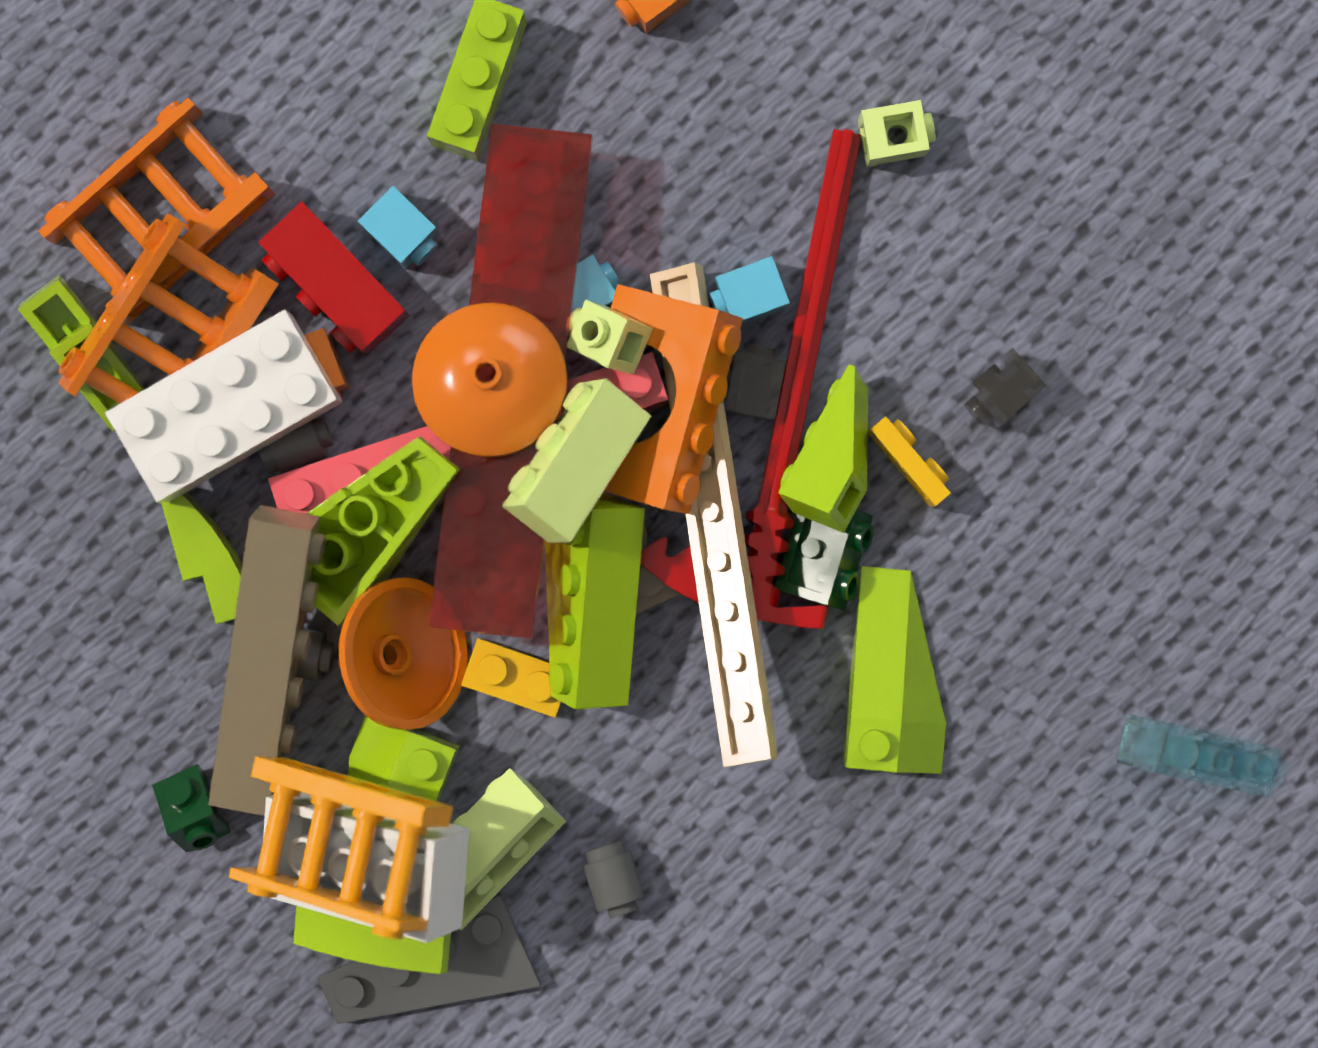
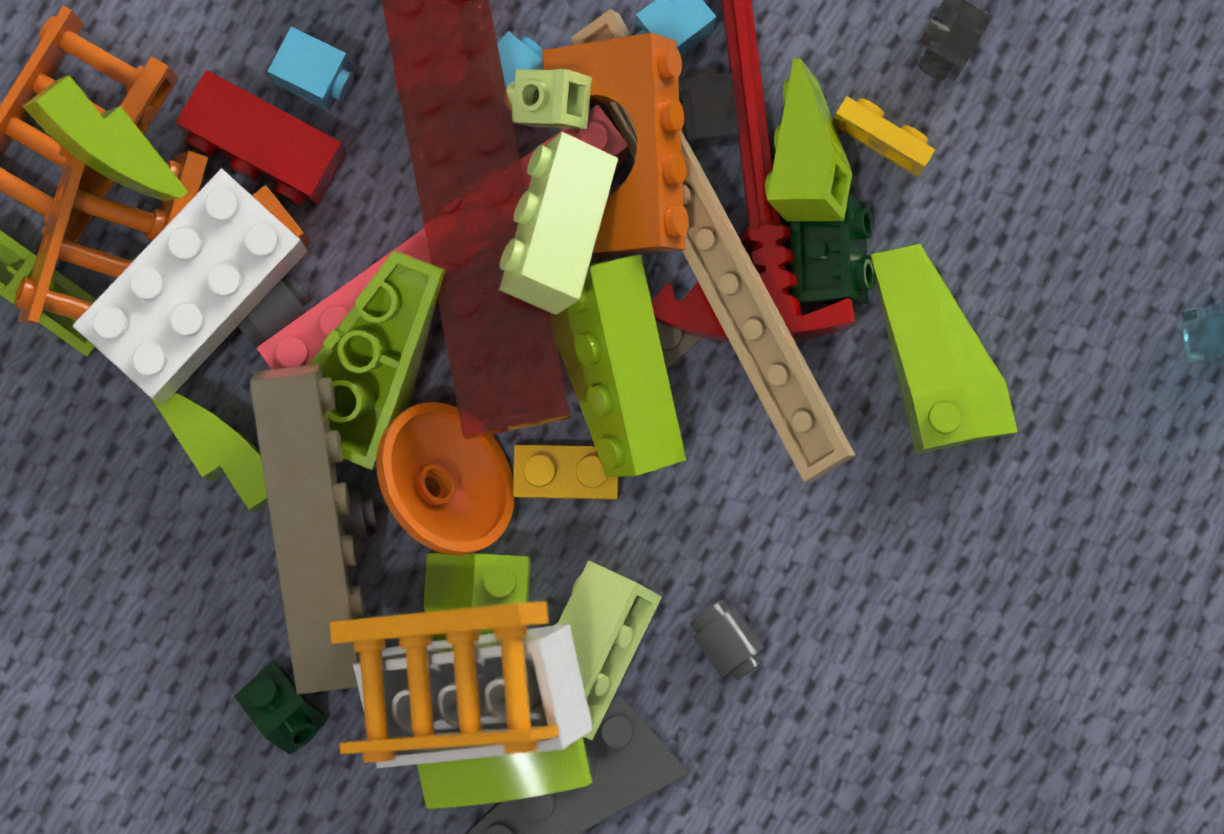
camera: 15 degrees left, 5 degrees down
(183, 246) = (103, 141): none -> lime slope
(495, 415) = (453, 206): orange dish -> none

